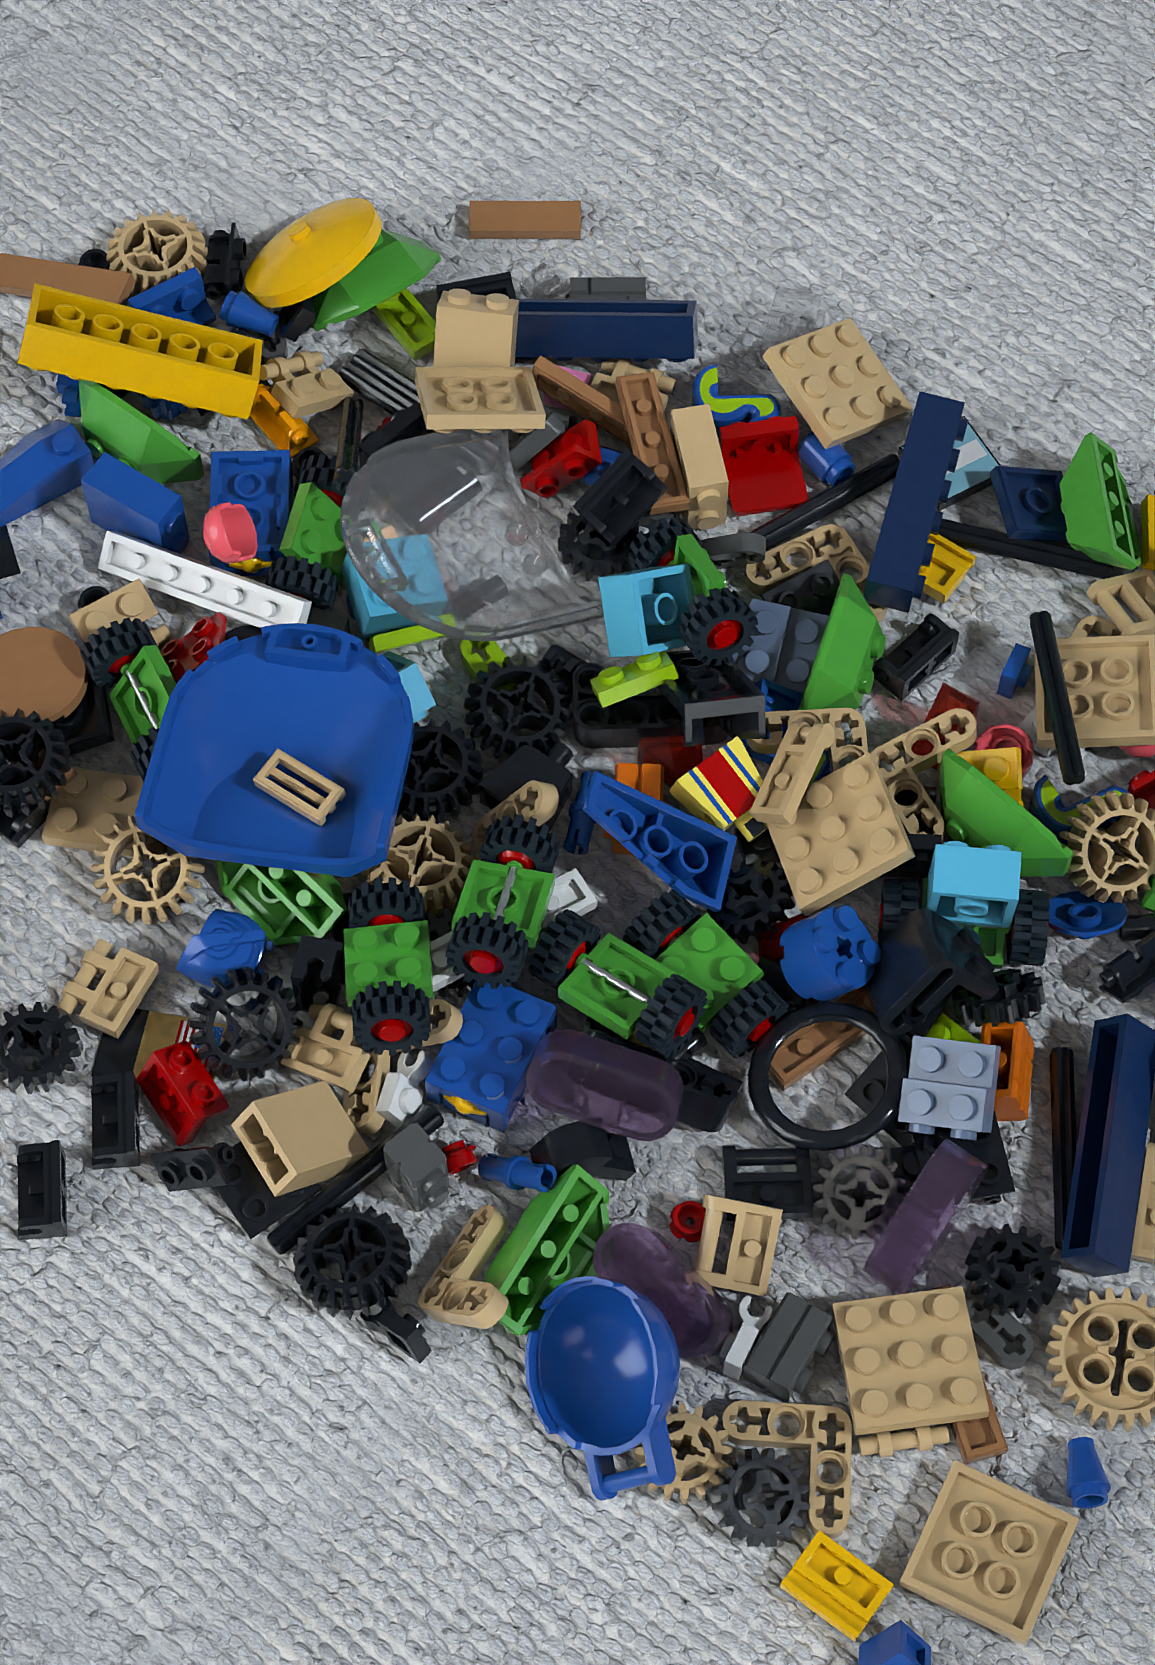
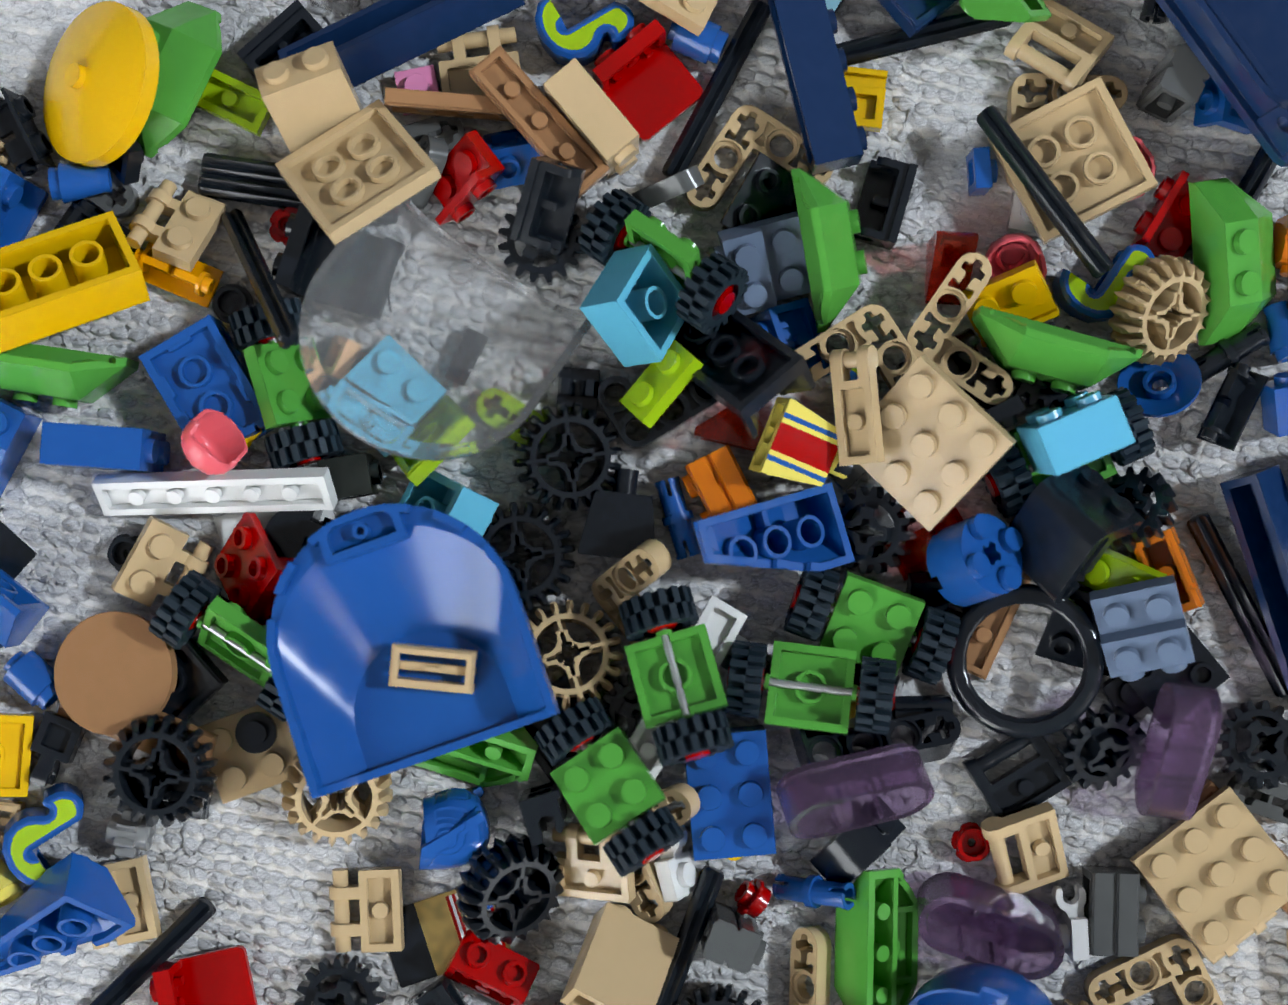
camera: 30 degrees left, 25 degrees up
(111, 785) = (256, 732): none -> black plate

